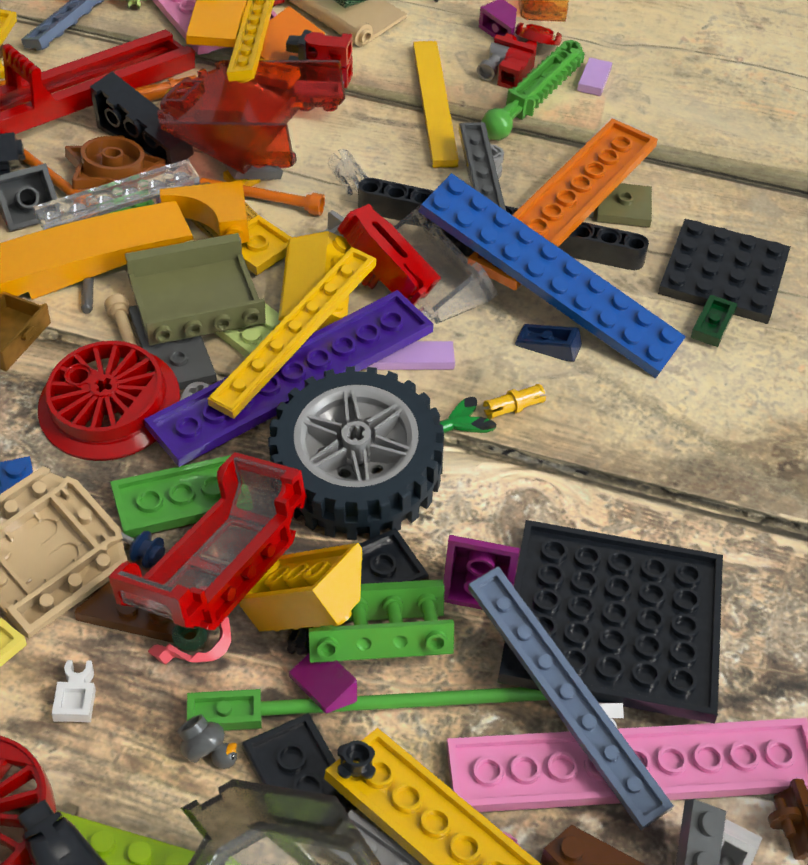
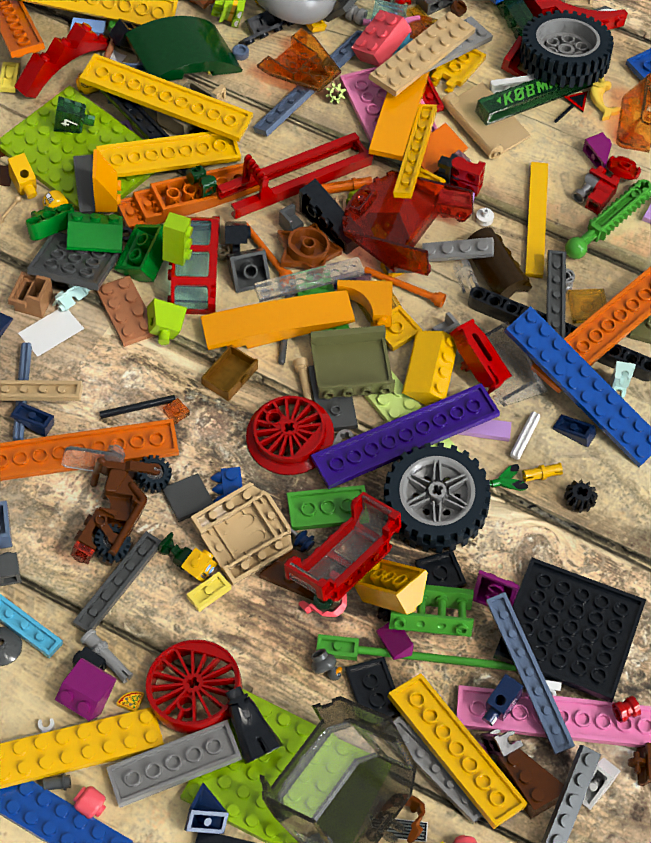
camera: 10 degrees right, 10 degrees up
(76, 697) = (256, 625): white plate -> none
(78, 129) = (288, 219): none -> dark grey panel
(291, 333) = (410, 406): yellow tile -> none
(337, 137) = (459, 249): none -> light grey plate
(359, 752) = (408, 686): black plate -> none
(362, 106) = (484, 217): none -> white tile
(388, 149) = (501, 270): none -> dark brown brick
(476, 357) = (525, 435): none -> white axle
(522, 184) = (585, 303): none -> clear yellow tile
(530, 746) = (506, 693): none -> dark blue torso
(540, 825) = (499, 744): none -> hinge
(581, 424) = (580, 496): none -> black gear
(603, 254) = (622, 376): none -> light aqua hinge
(740, 731) = (626, 709): none -> red wheel

